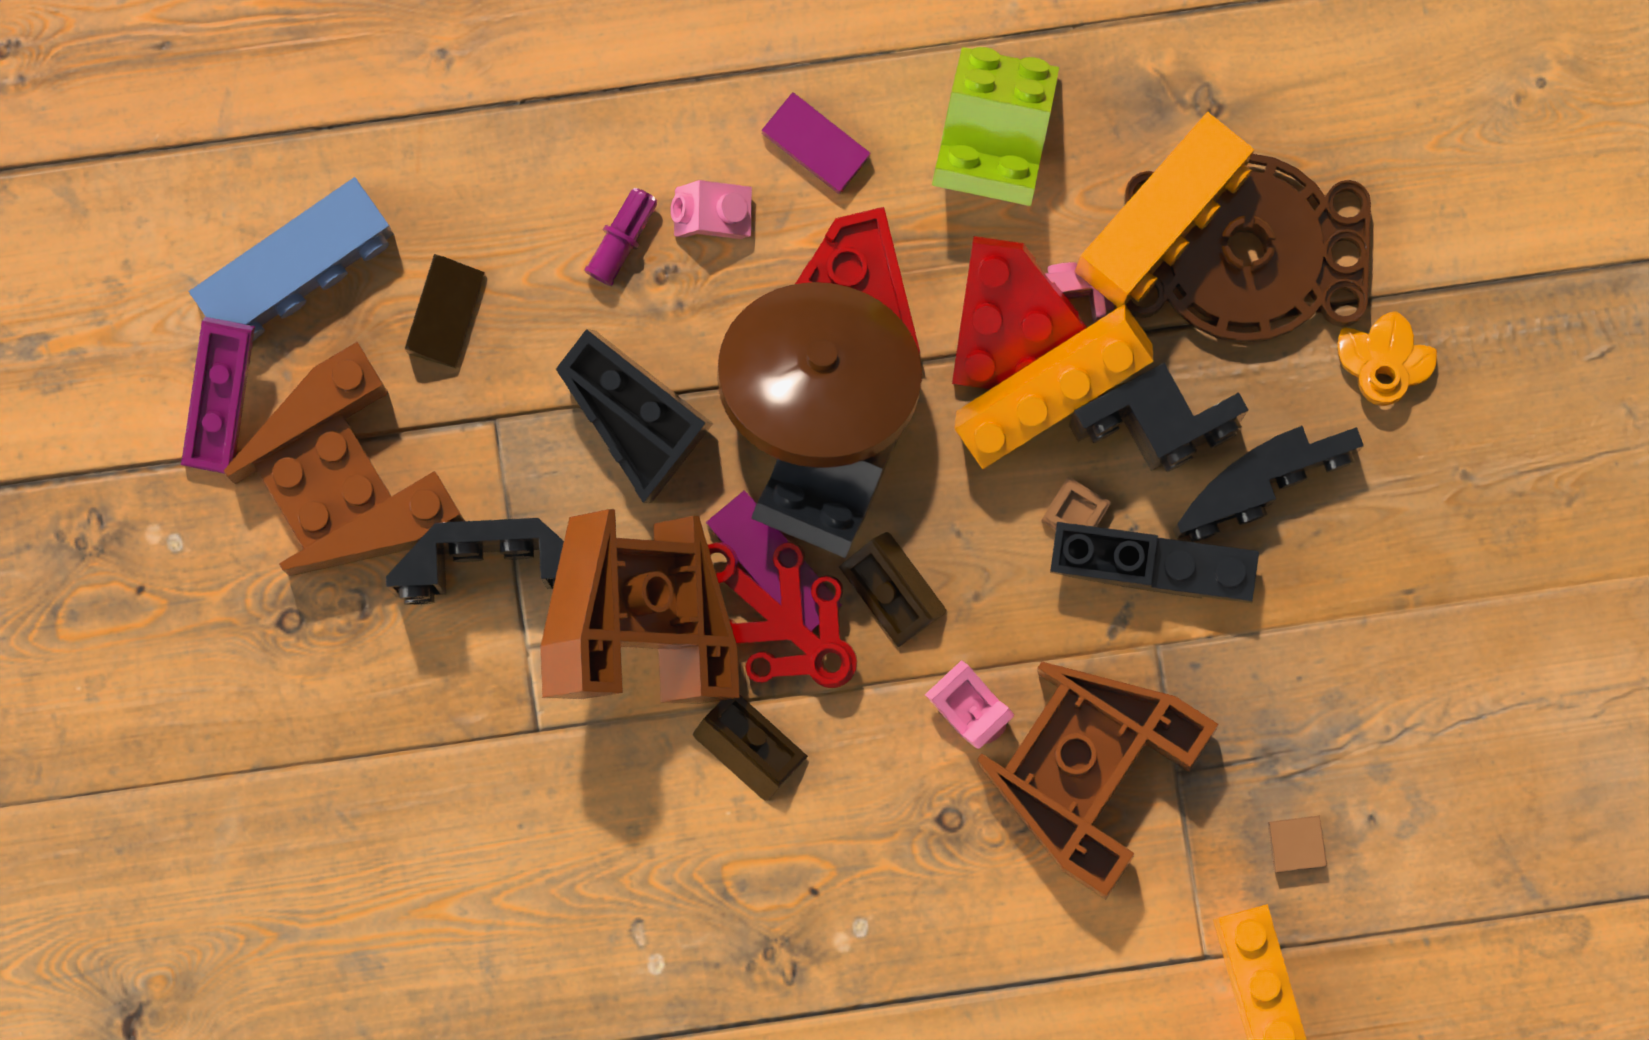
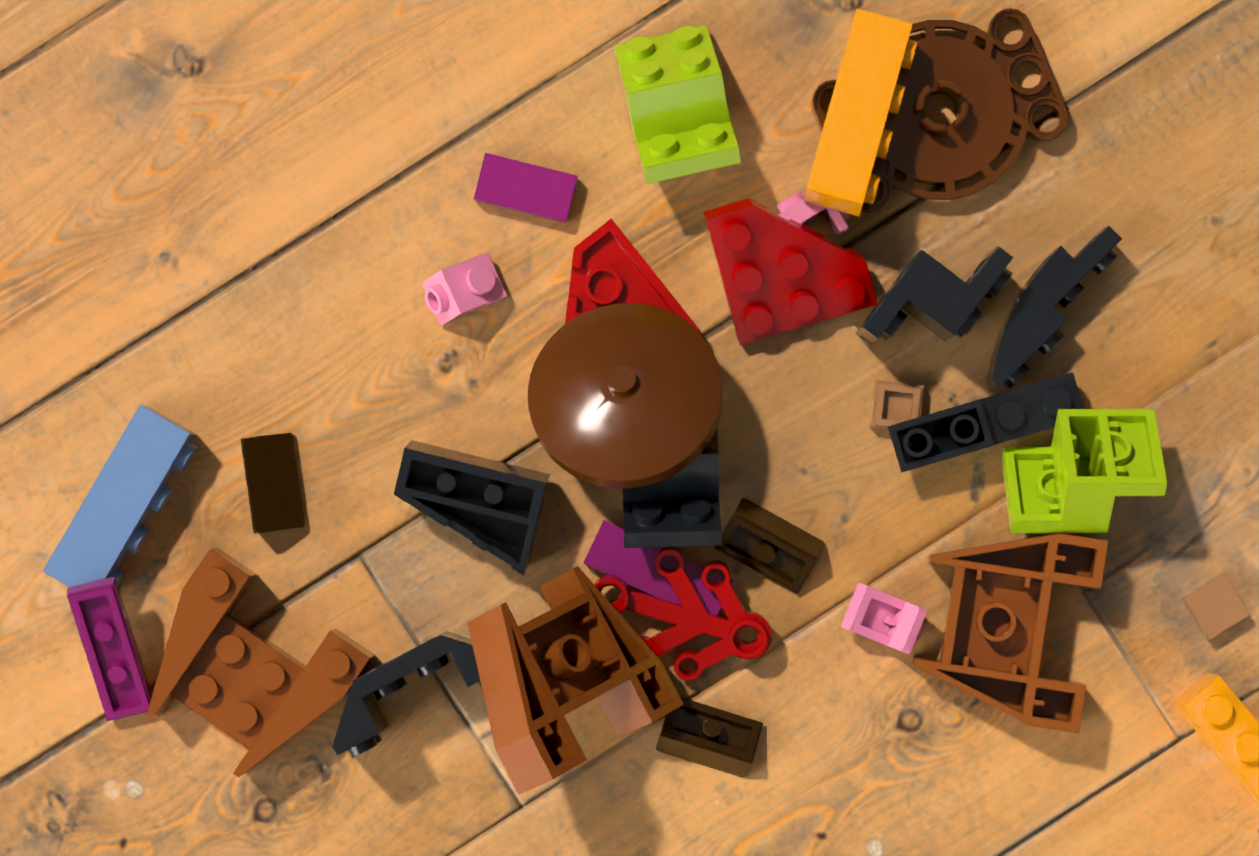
camera: 20 degrees left, 5 degrees up
(621, 236) = (395, 347): magenta axle -> none
(1053, 386) = (833, 311): light orange brick -> none
(1239, 640) = (1088, 464): none -> lime bracket
(1386, 351) = (1103, 144): light orange plate -> none

